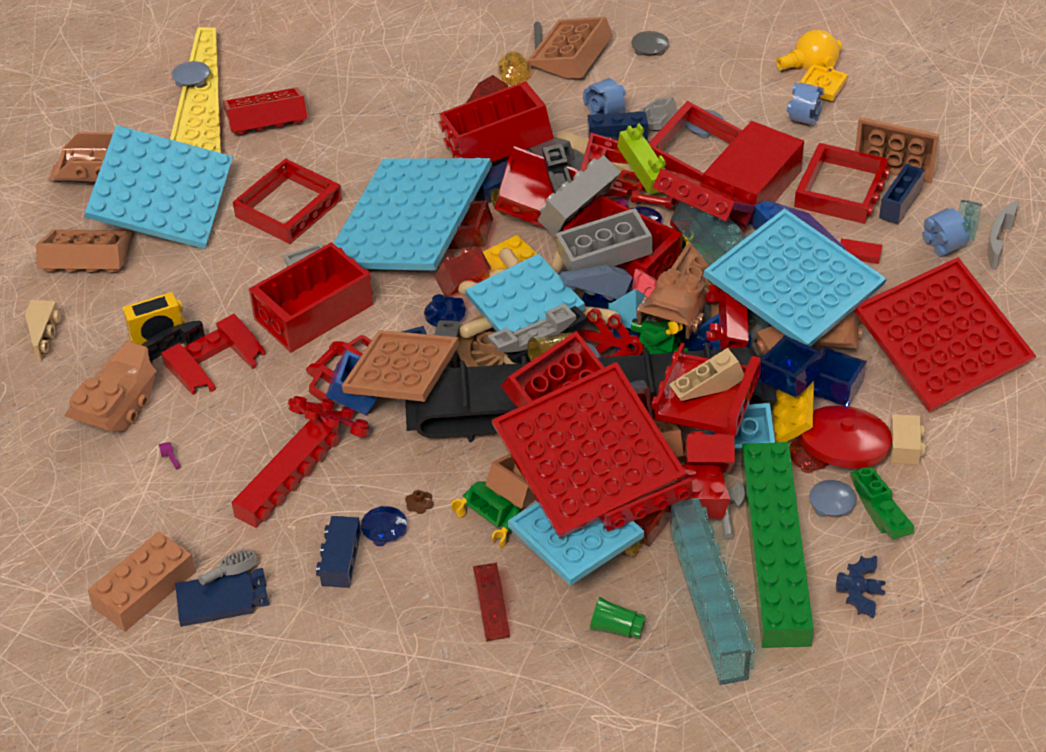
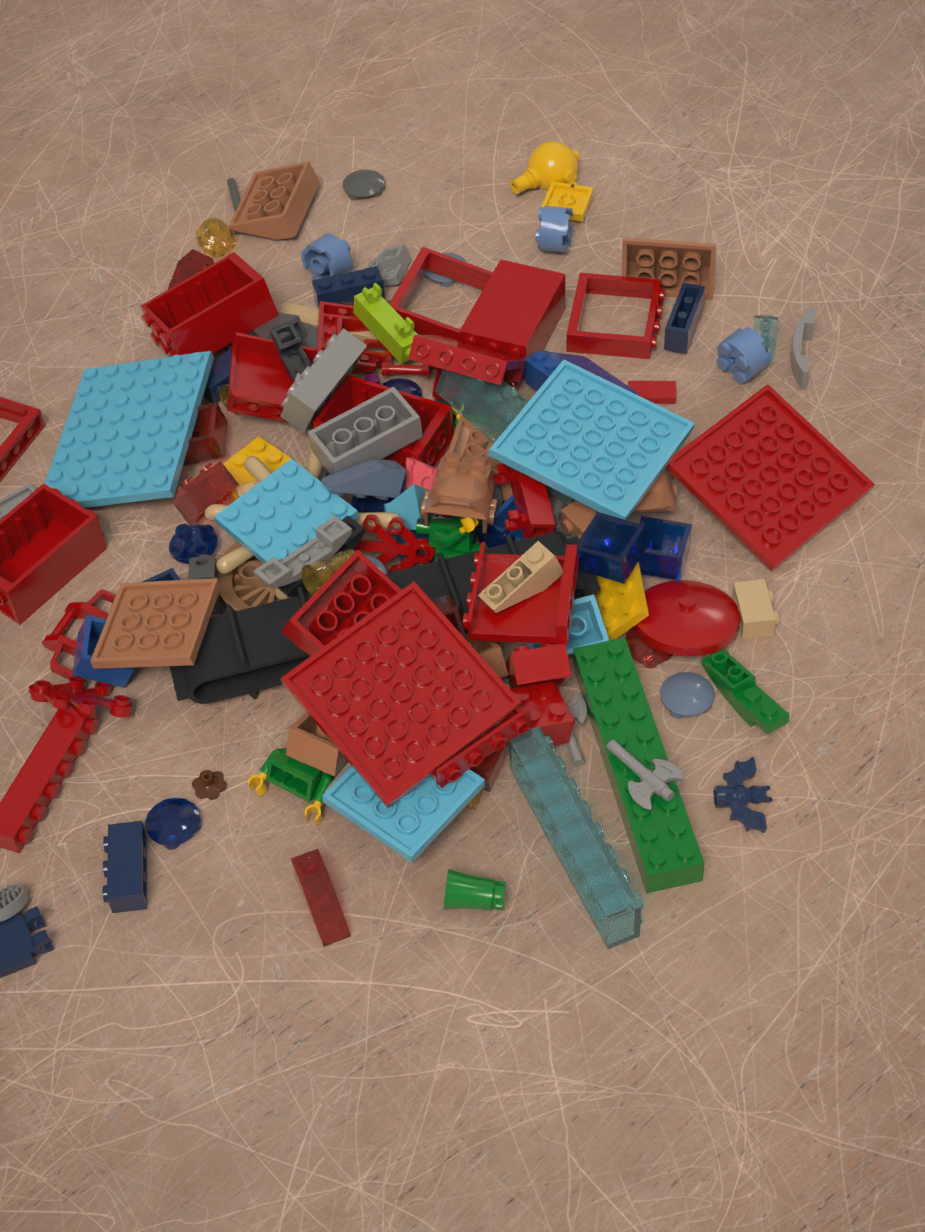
camera: 10 degrees left, 5 degrees up
(783, 557) = (651, 782): none -> light grey piece

